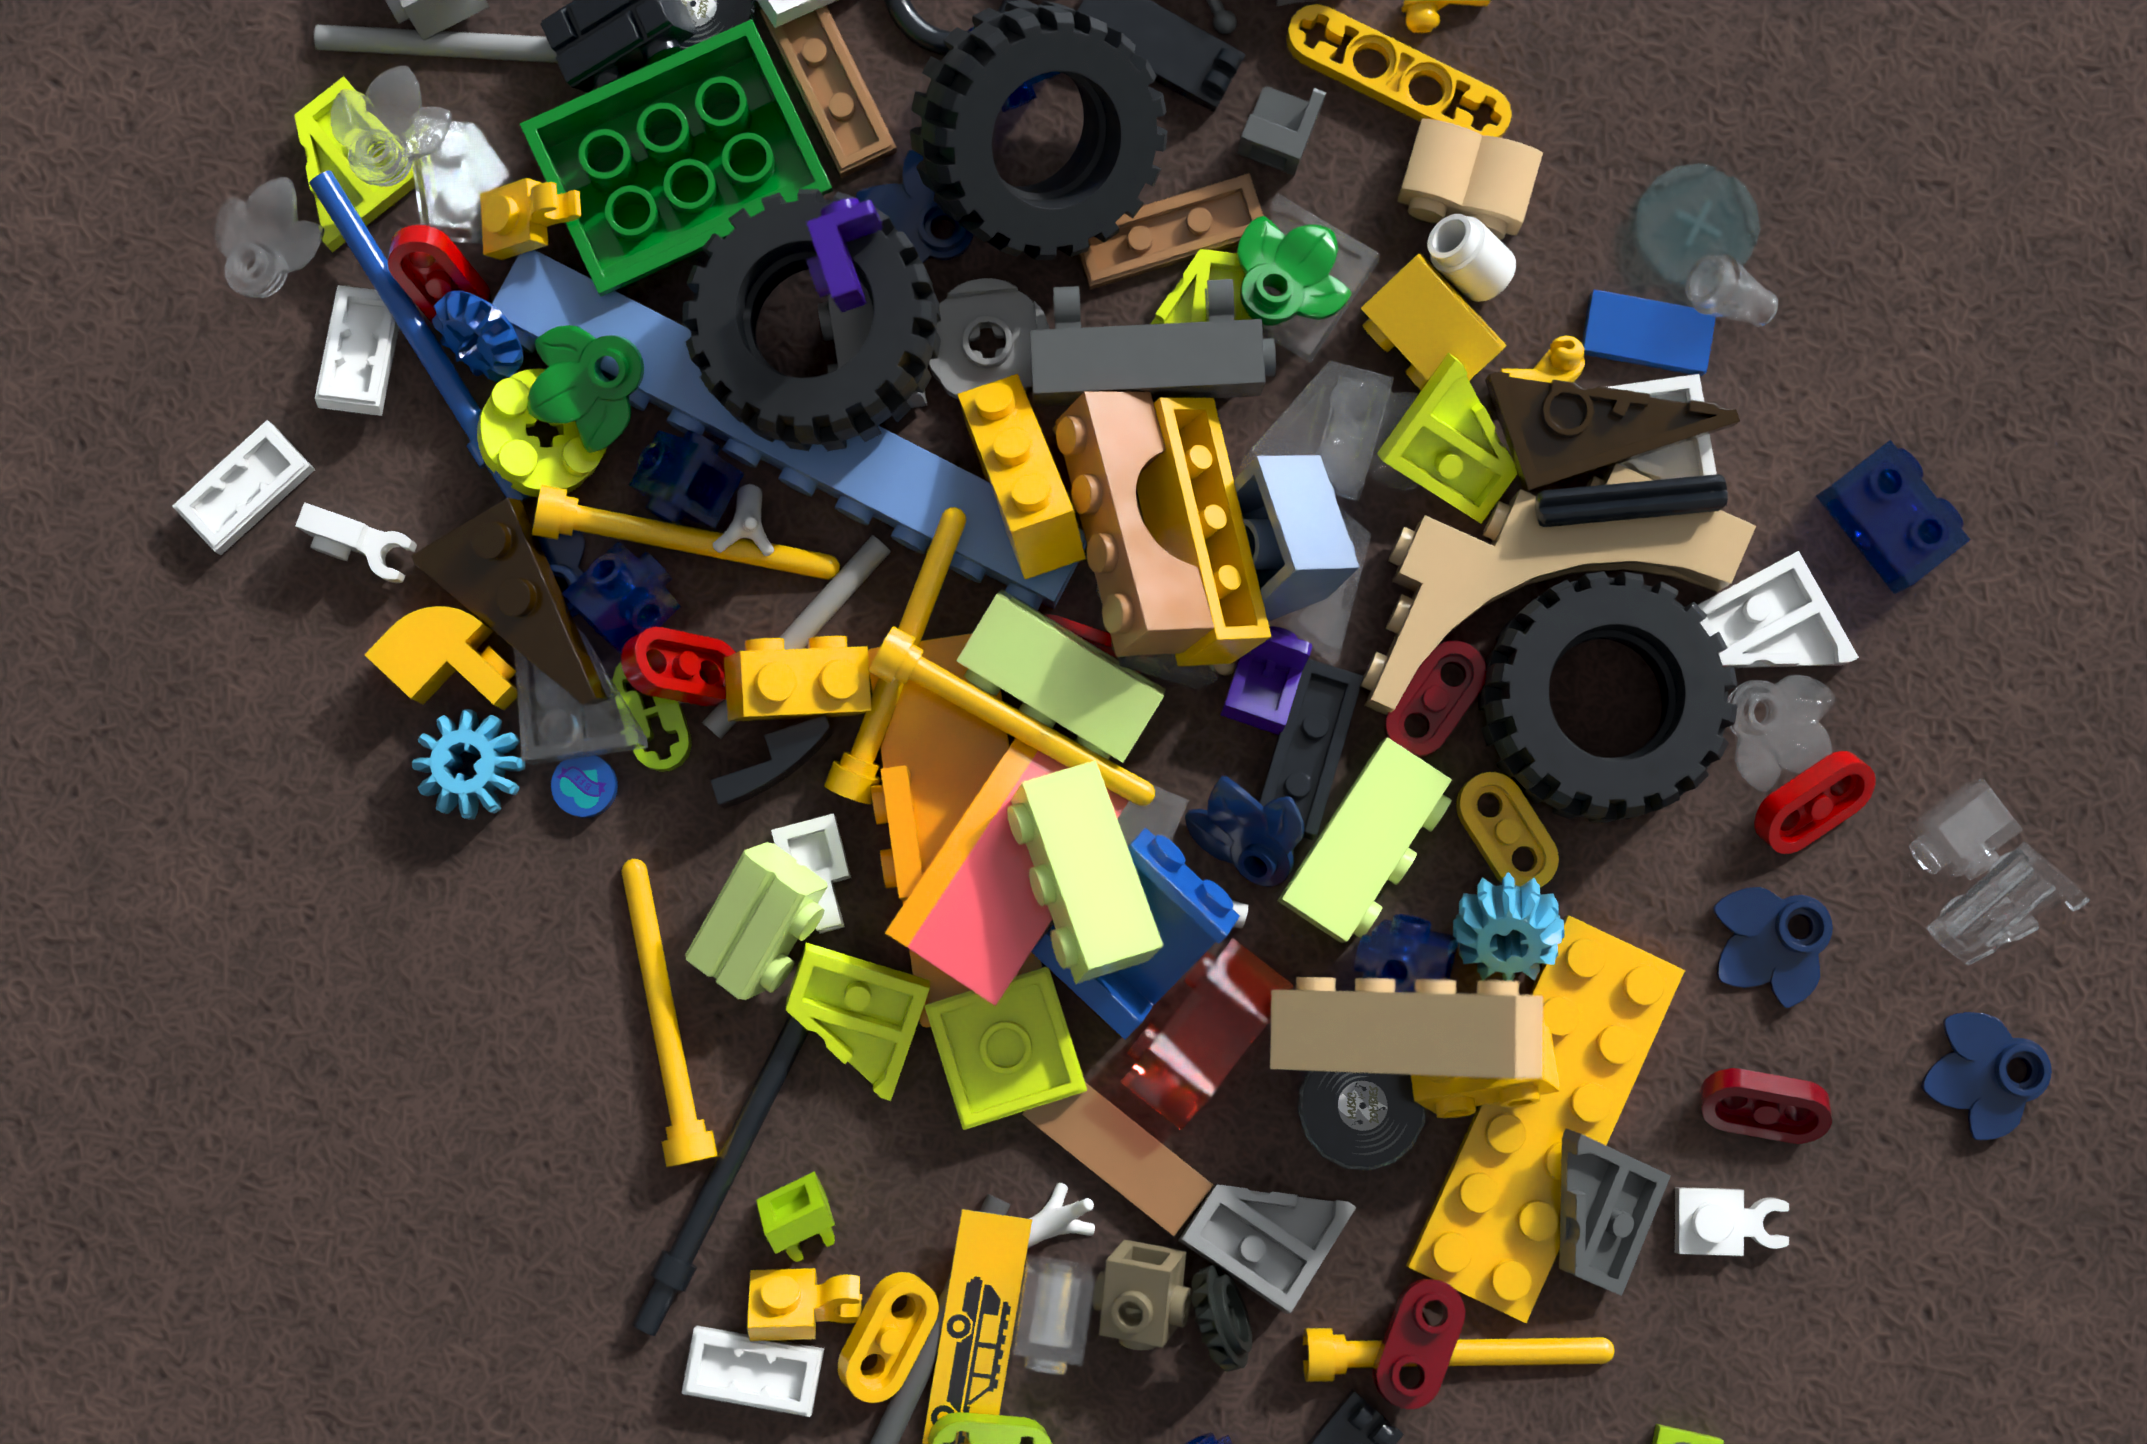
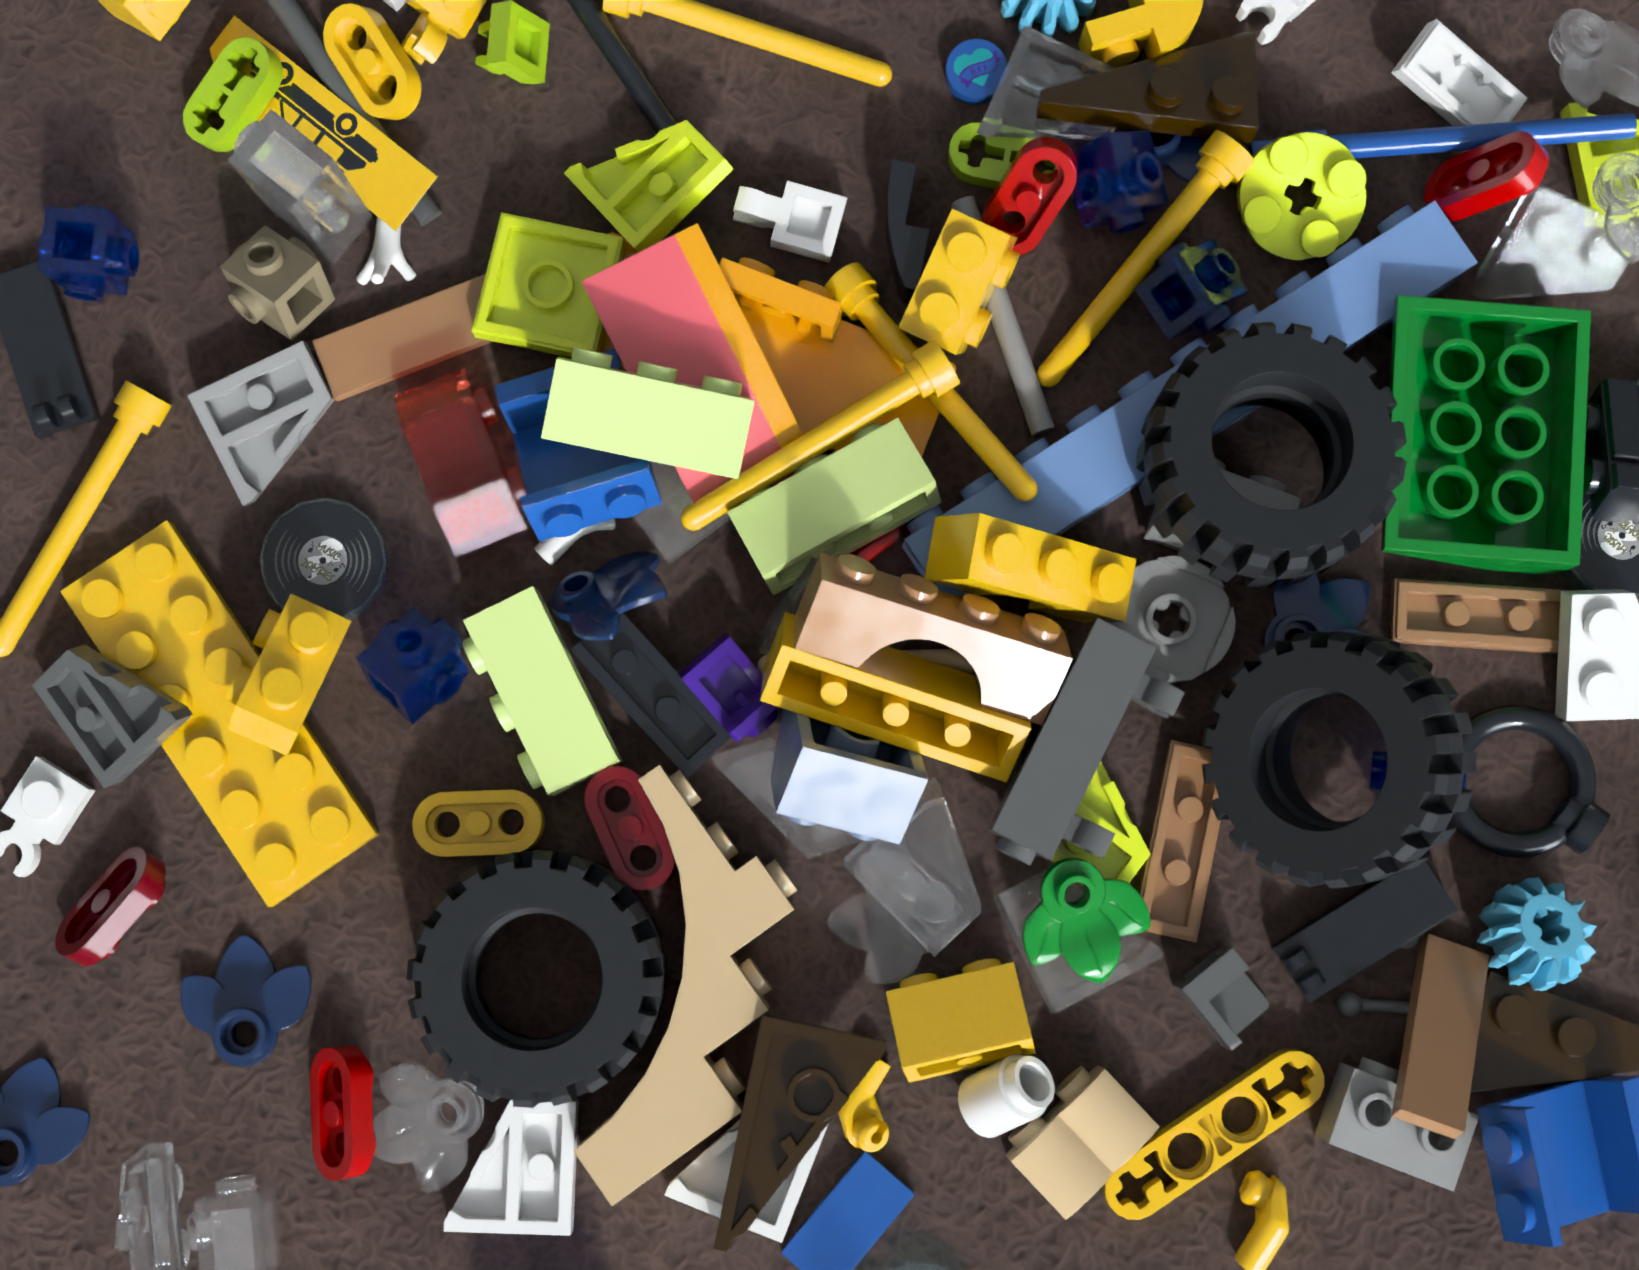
camera: 125 degrees right, 0 degrees up
(497, 348) = (1417, 183): blue gear -> none
(519, 214) = (1506, 266): yellow plate -> none
(578, 390) = (1320, 236): green plate -> none
(746, 522) = (1126, 323): white bar -> none
(758, 921) = (774, 138): yellowish green brick -> none
(833, 266) = (1309, 480): dark purple bracket -> none
(1222, 1318) = (216, 335): pearl dark grey gear -> none
(1407, 1032) = (344, 614): tan brick -> none
(1414, 1341) = (94, 485): dark red plate -> none
(1451, 444) = (844, 972): neon yellow wing -> none
(1508, 928) = (392, 769): medium azure gear -> none
(1631, 500) = (697, 1103): black axle -> none

